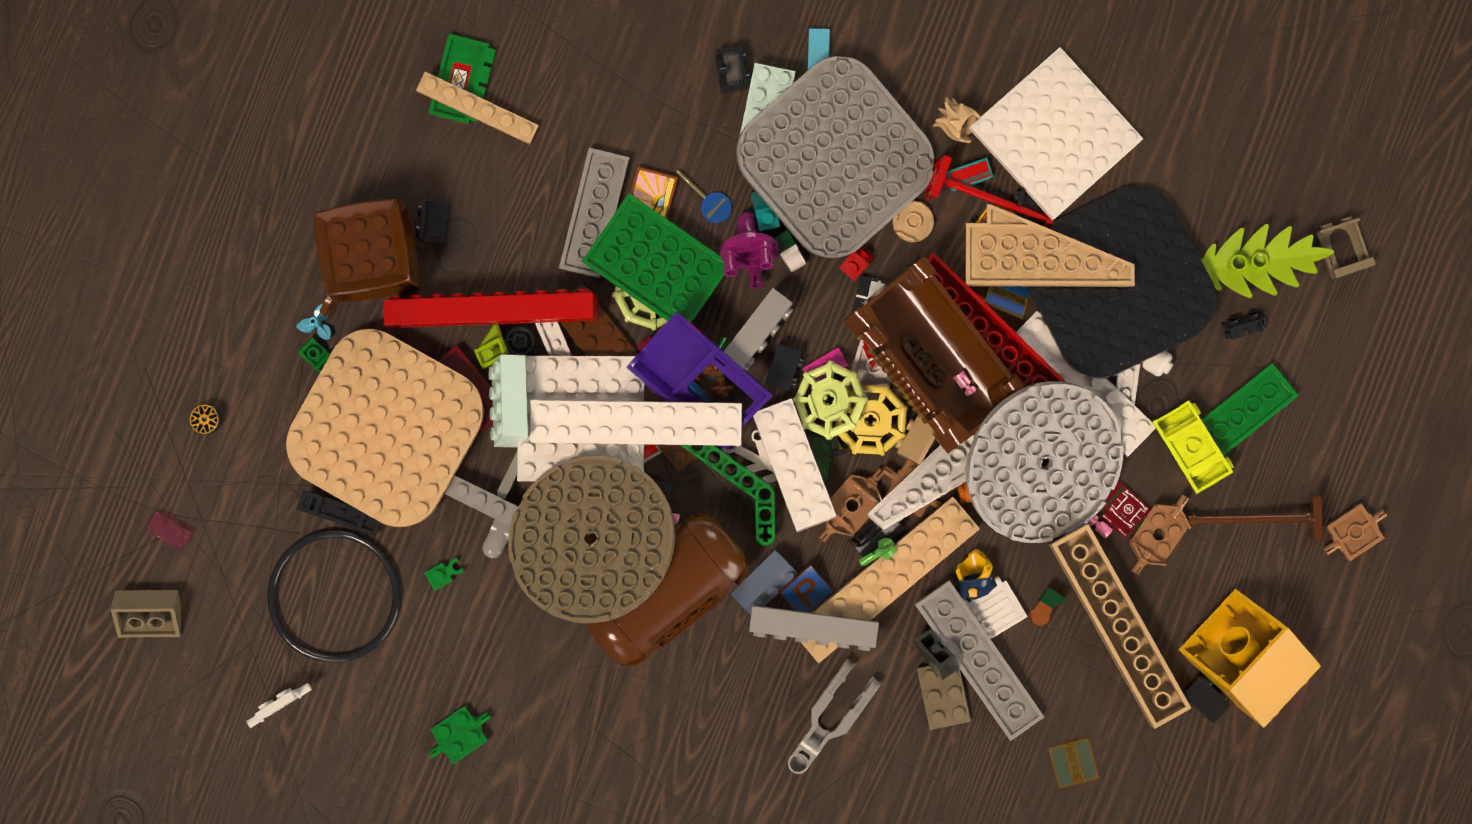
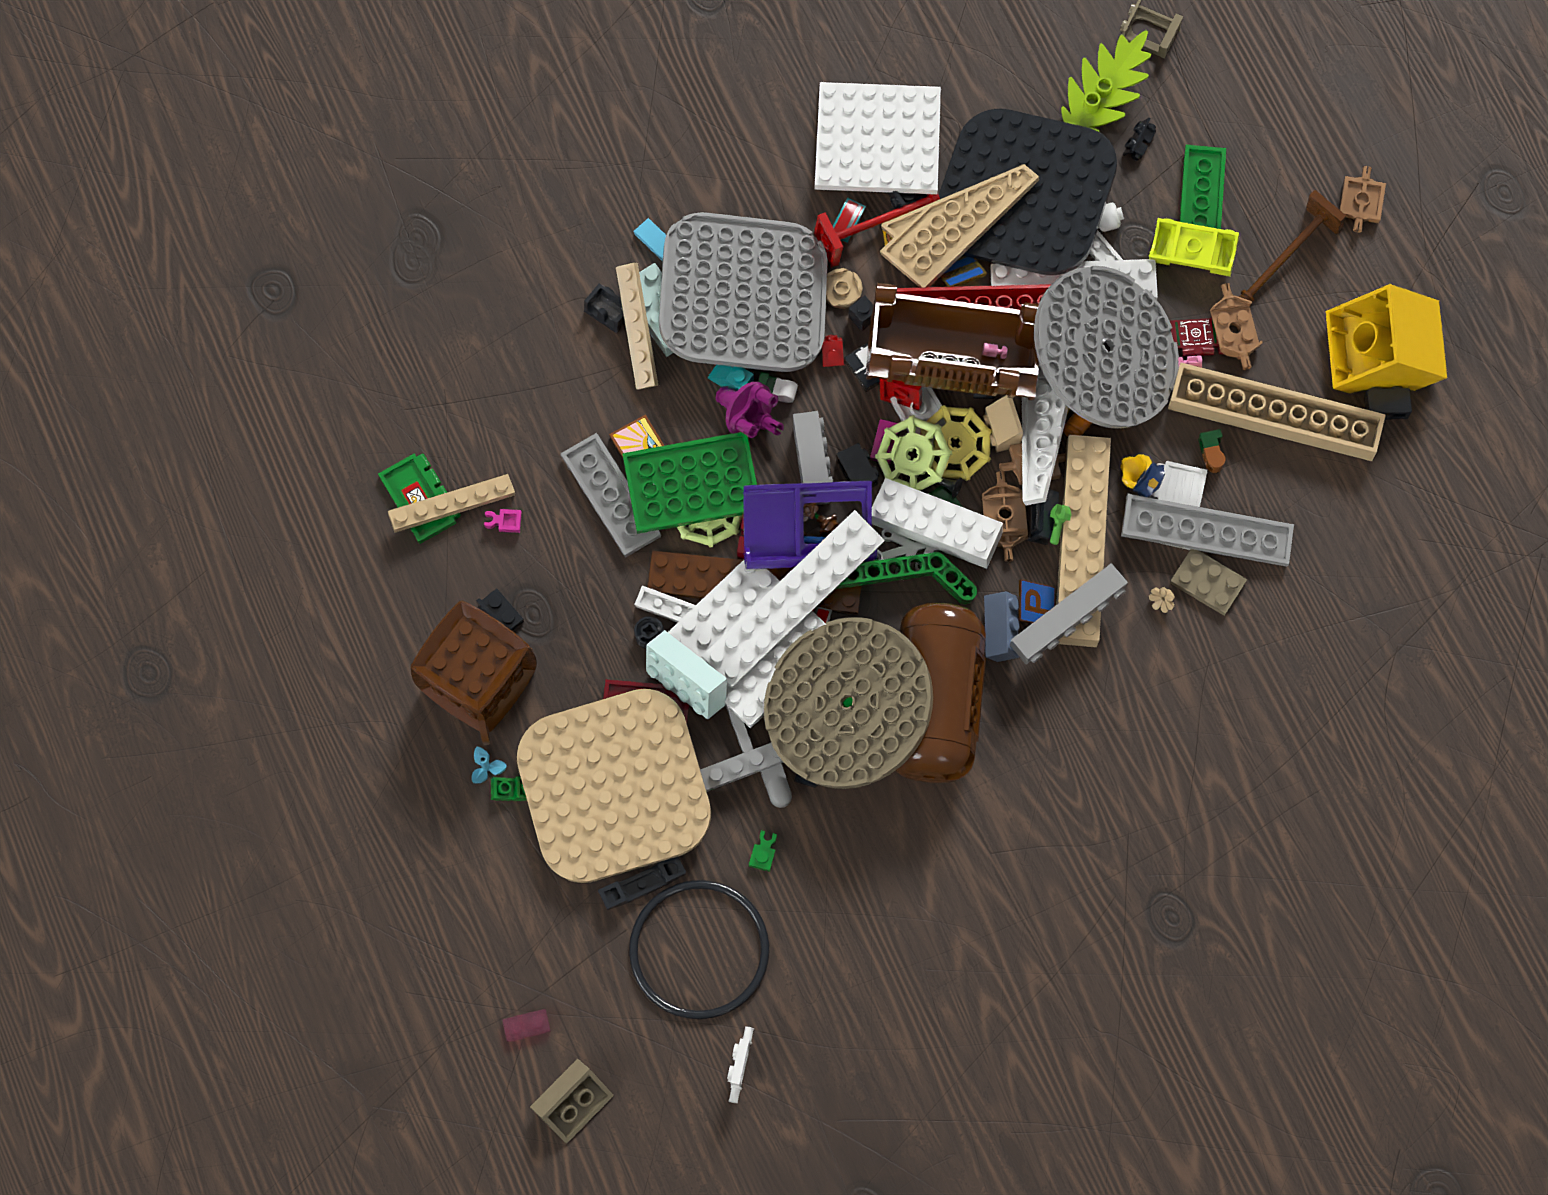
camera: 40 degrees left, 15 degrees down
(206, 419) = (472, 914): wheel -> none
(459, 735) = (896, 956): green plate -> none
(490, 310) = (606, 625): red brick -> none
(491, 347) = (632, 656): lime slope -> none
(503, 159) = (507, 520): none -> dark pink plate
(715, 206) = (692, 410): blue piece -> none
(734, 107) = (637, 326): none -> tan plate
(817, 737) = (1153, 699): light grey piece -> none
(897, 676) = (1163, 598): none -> tan plant
(906, 256) = (861, 313): none -> black brick
(936, 655) = (1177, 554): pearl dark grey brick -> none
(957, 120) = (801, 191): tan hair -> none
(1073, 763) = (1348, 538): clear yellow piece -> none

